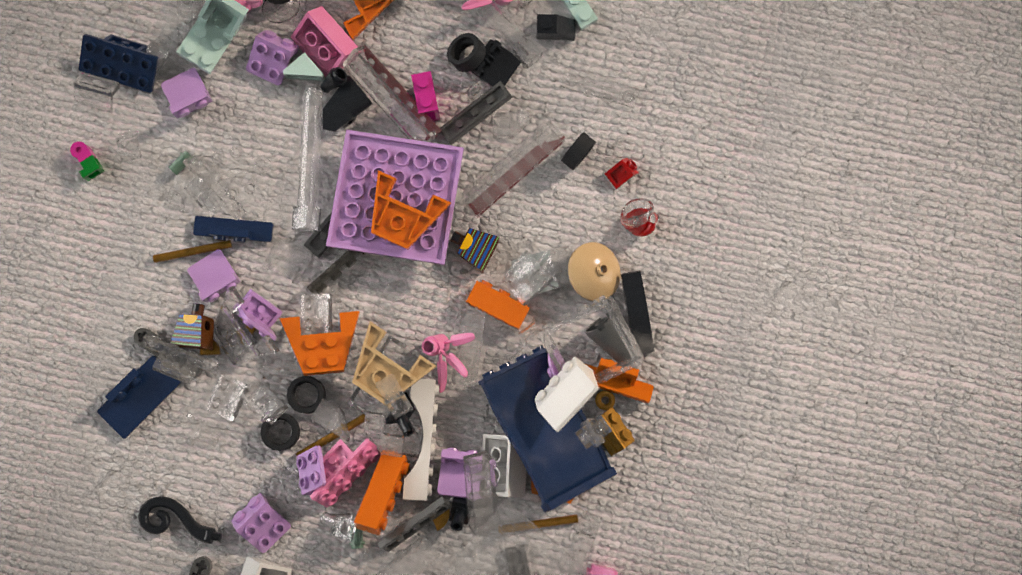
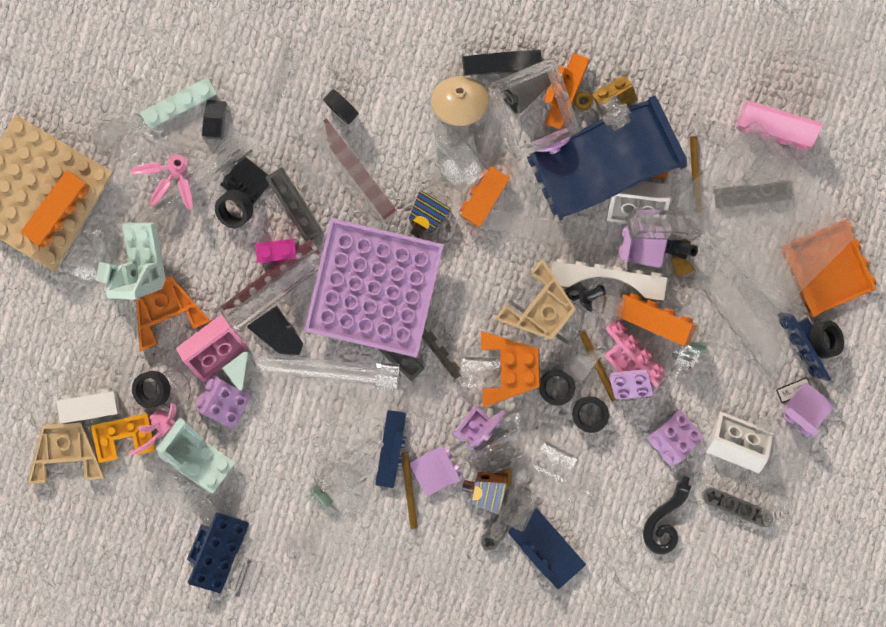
camera: 90 degrees left, 5 degrees up
(87, 159) = (312, 587): leg -> none
(186, 93) = (252, 487): lavender bracket -> none
(265, 403) = (564, 425): clear bracket -> none
(334, 79) = (250, 339): black cone -> none
(394, 396) = (568, 300): clear slope -> none
(399, 221) = (400, 284): orange wing -> none
(414, 524) = (688, 290): dark grey tile -> none
(439, 345) = (519, 256): bright pink plant -> none
(566, 393) = (578, 135): white slope -> none
(622, 172) = (363, 66): red bracket -> none
(639, 217) = (409, 52): clear piece -> none

